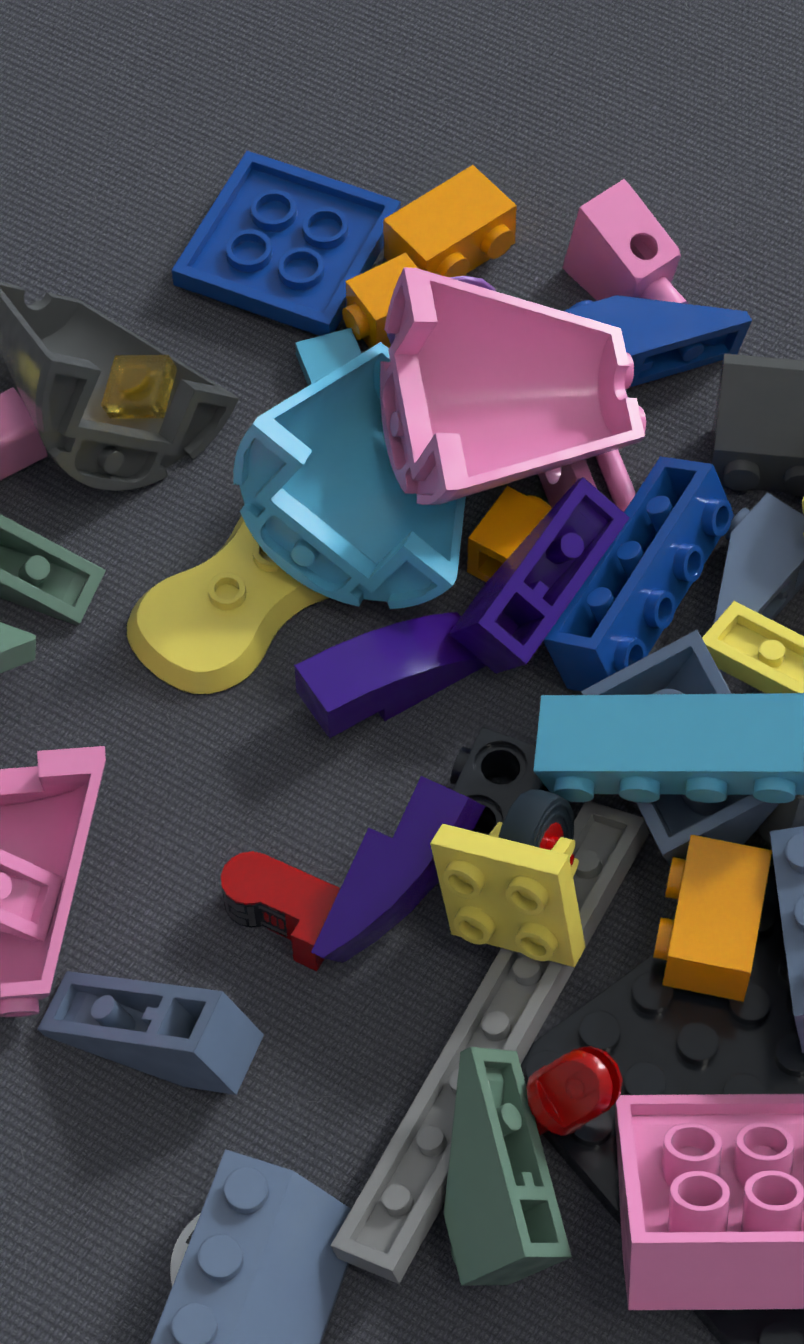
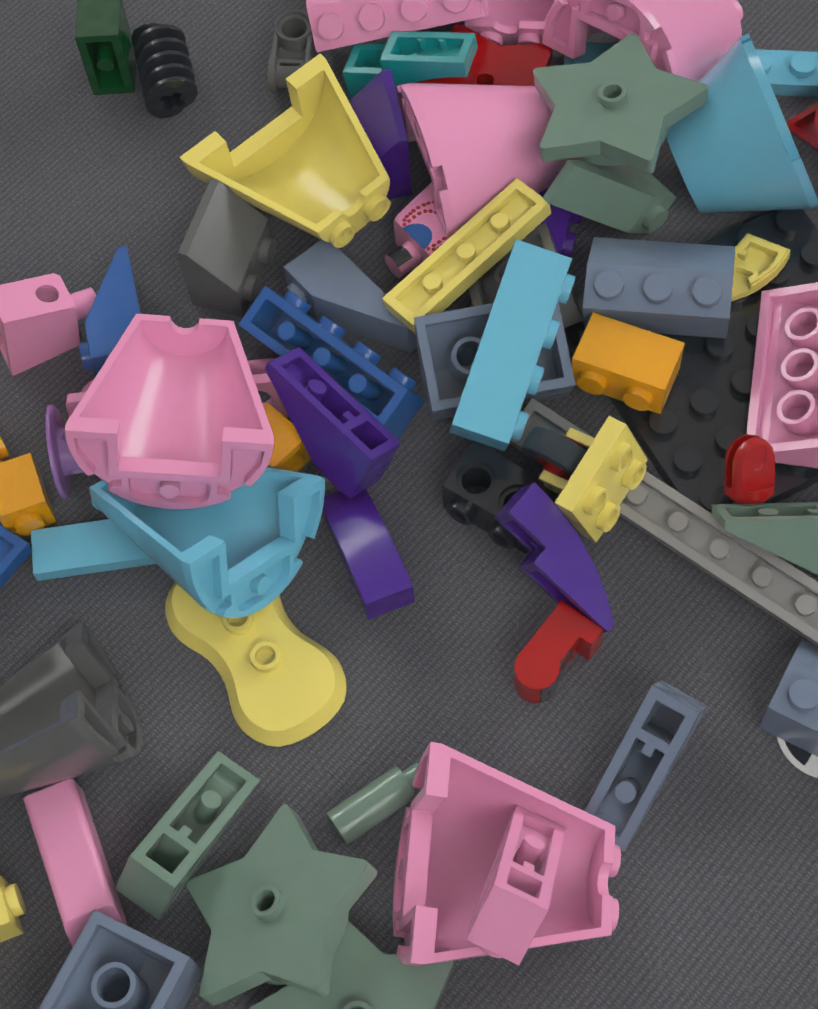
camera: 75 degrees left, 5 degrees up
(52, 728) = (373, 803): none -> sand green cylinder
(139, 386) = (41, 696): clear yellow plate -> none

